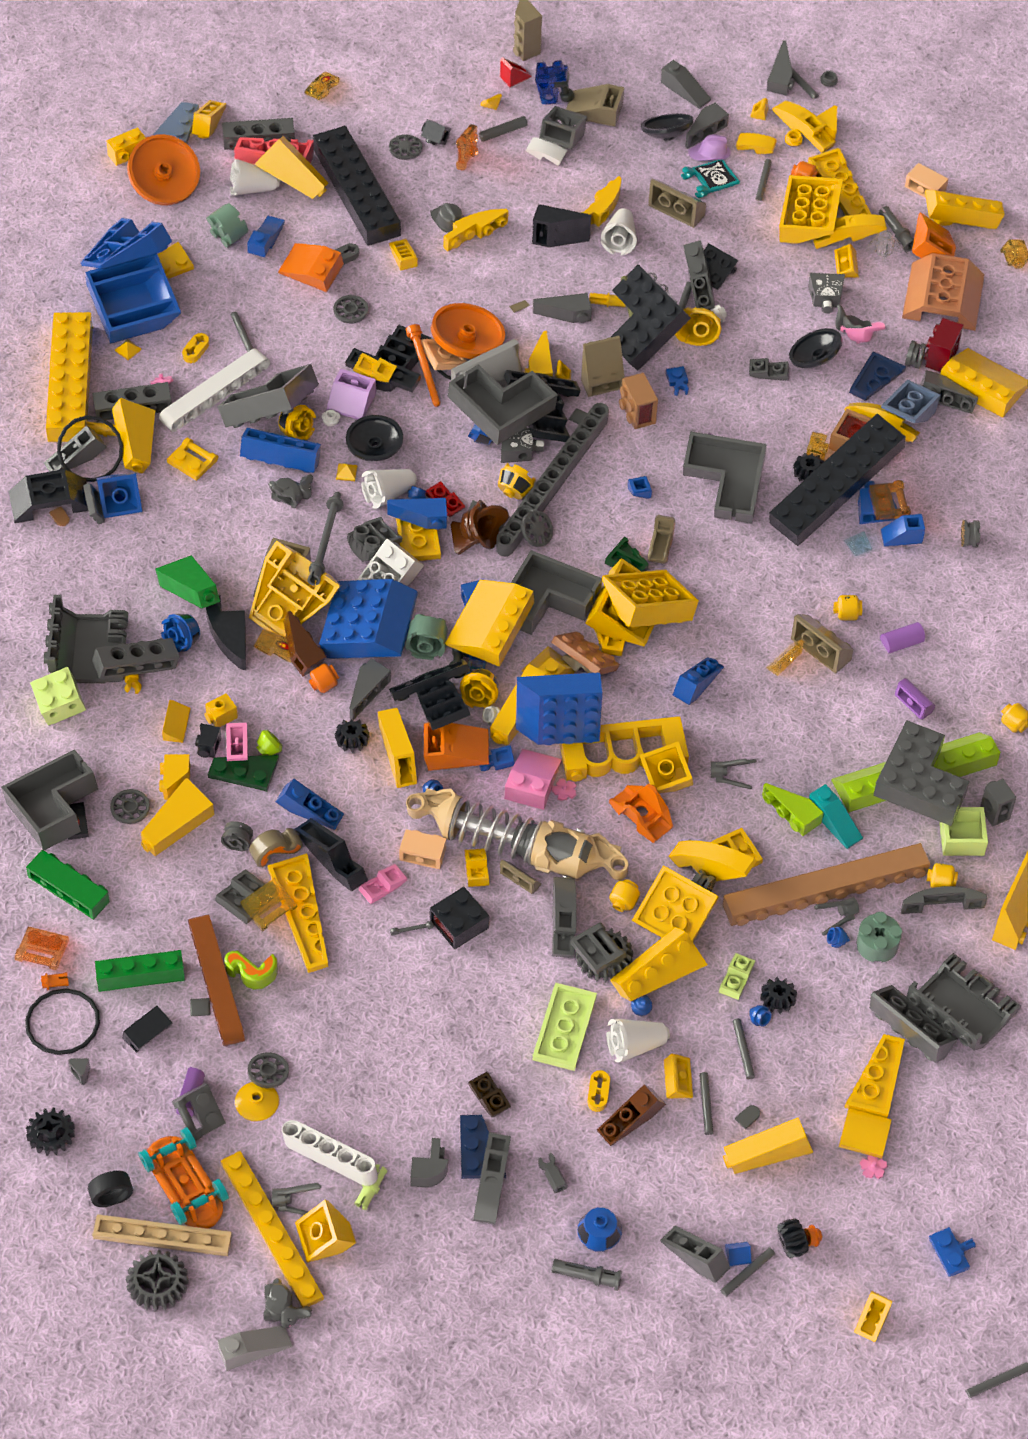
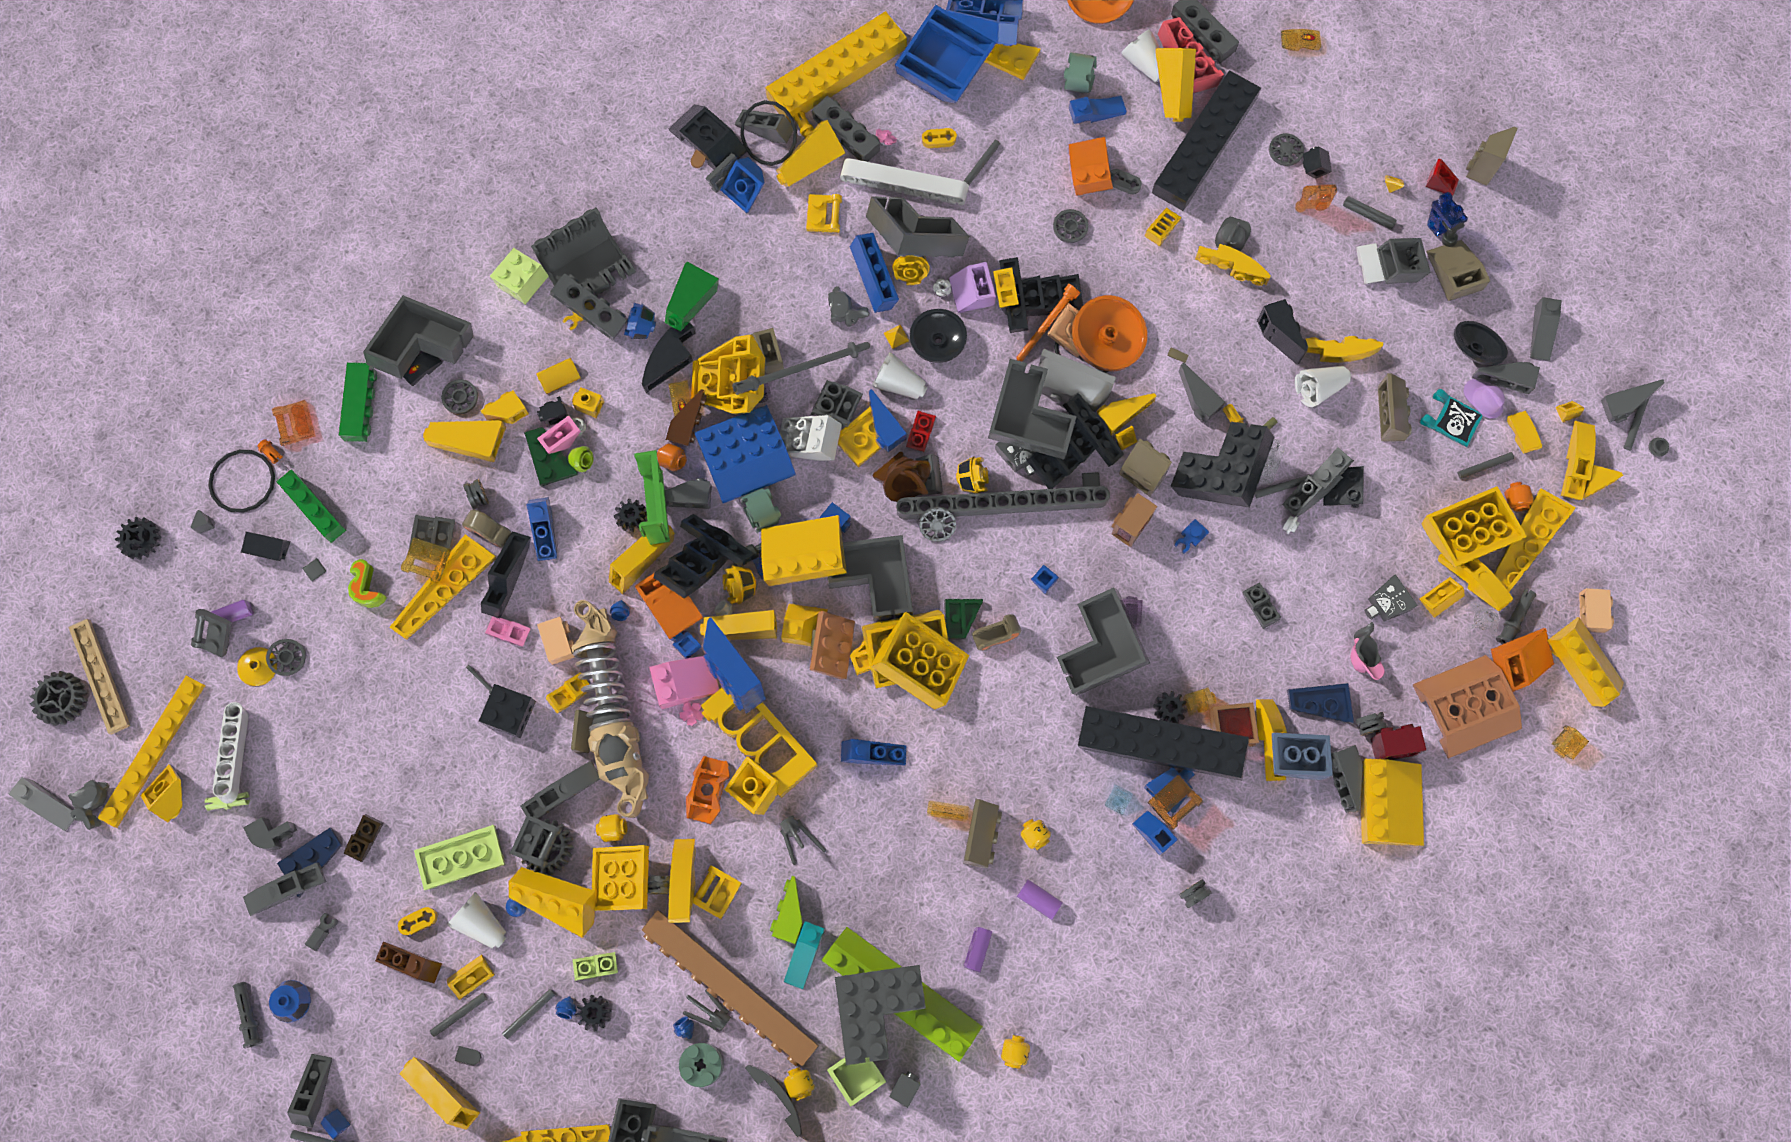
camera: 60 degrees right, 20 degrees up
(110, 1188) = (108, 614): black tyre -> none
(128, 349) = (901, 90): yellow slope -> none
(184, 1181) = (152, 661): orange piece -> none
(216, 980) = (339, 565): dark orange beam -> none
(282, 1197) = (180, 742): dark grey plant -> none
(385, 710) = (656, 526): none -> bright green piece
(416, 493) = (908, 406): blue plate -> none
(701, 329) = (1260, 519): yellow head -> none
(793, 138) = (1557, 455): yellow plate -> none
(816, 348) = (1309, 632): black dish -> none

